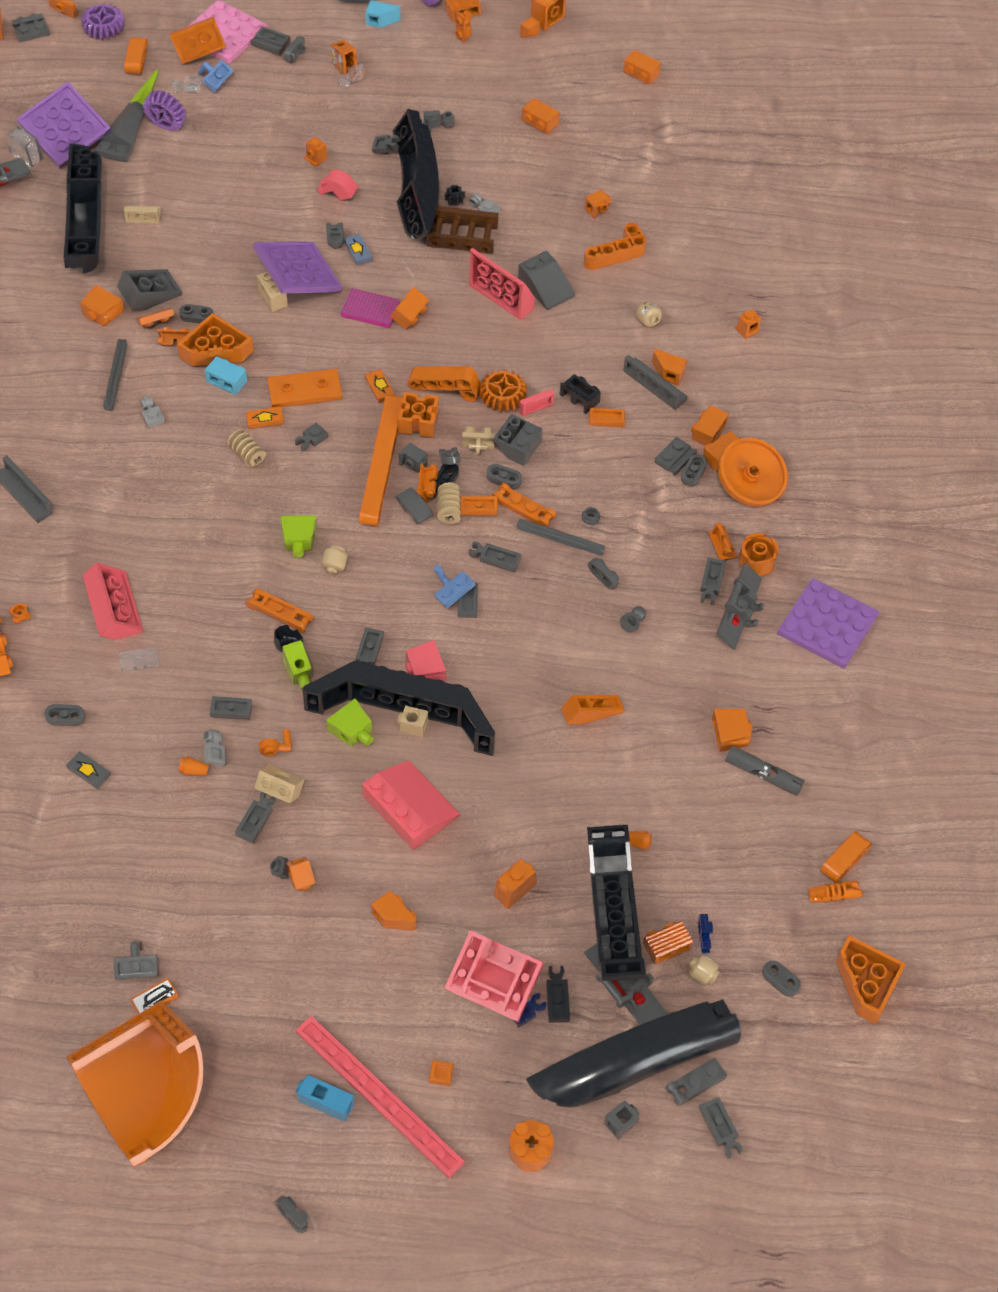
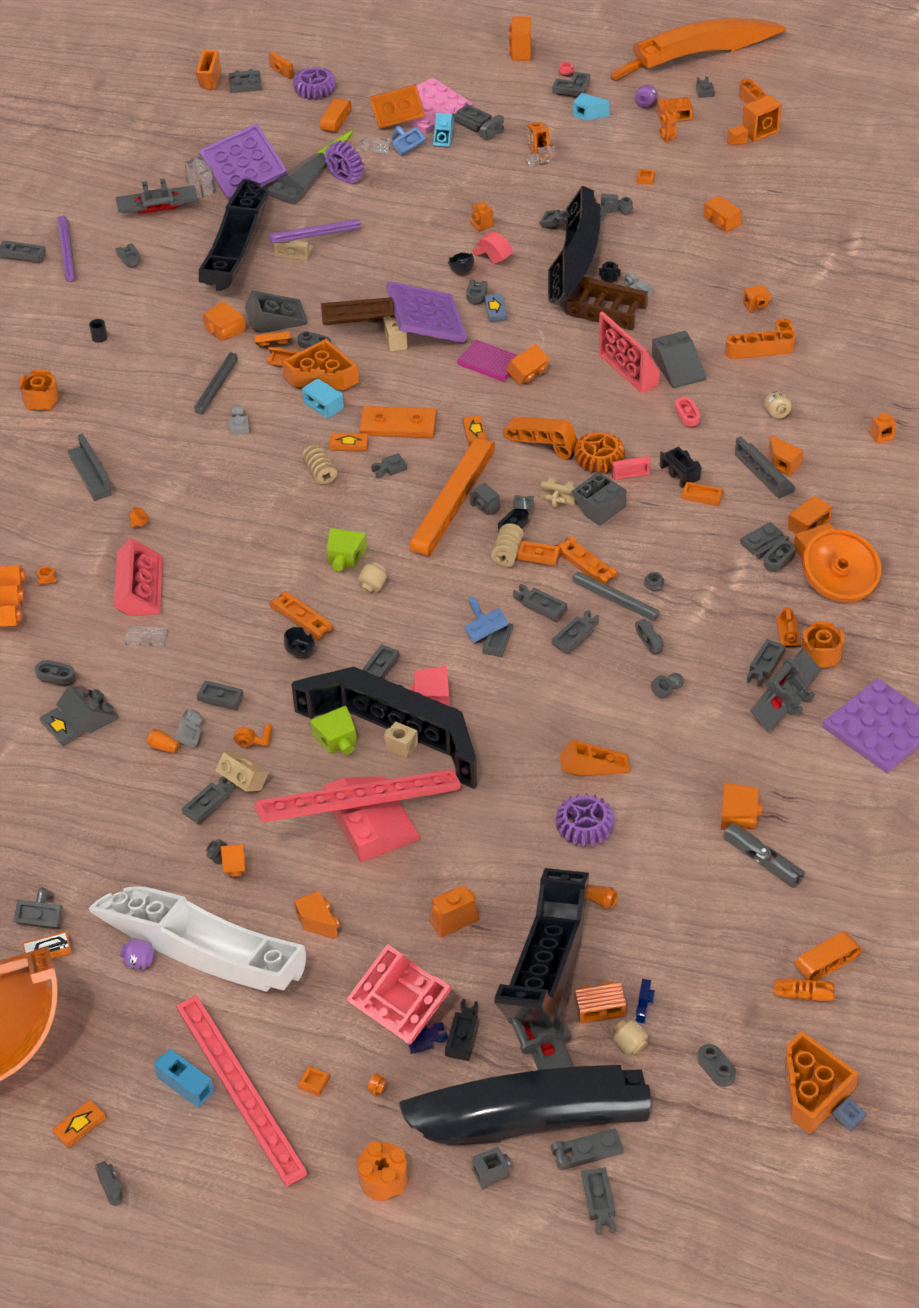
camera: 20 degrees right, 10 degrees down
(89, 535) = (138, 517): none -> orange tile
(109, 747) = (86, 708): none -> dark grey slope
(159, 192) = (314, 231): none -> medium lavender axle
(231, 277) = (356, 311): none -> reddish brown fence
(243, 986) = (137, 954): none -> medium lavender head
(243, 1163) = (78, 1123): none -> orange tile
(248, 59) = (443, 129): none -> medium azure slope
(297, 663) = (298, 668): lime torso -> none
(297, 959) = (201, 938): none -> white slope
(312, 205) = (461, 263): none -> black hair
(397, 791) = (356, 795): none -> coral plate
(415, 505) = (472, 543): dark grey slope -> none
(418, 414) = (503, 459): orange brick -> none
(427, 485) = (491, 522): orange hinge -> none
(456, 84) = (645, 176): none -> orange tile
(499, 1064) = (377, 1084): none -> orange plate
(505, 475) = (570, 527): dark grey plate -> none
(536, 581) = (575, 632): none -> dark grey plate
(572, 336) = (687, 411): none -> coral plate
(595, 760) = (585, 826): none -> medium lavender gear
(642, 67) = (844, 183): orange brick -> none
(903, 999) = (849, 1113): none -> sand blue tile

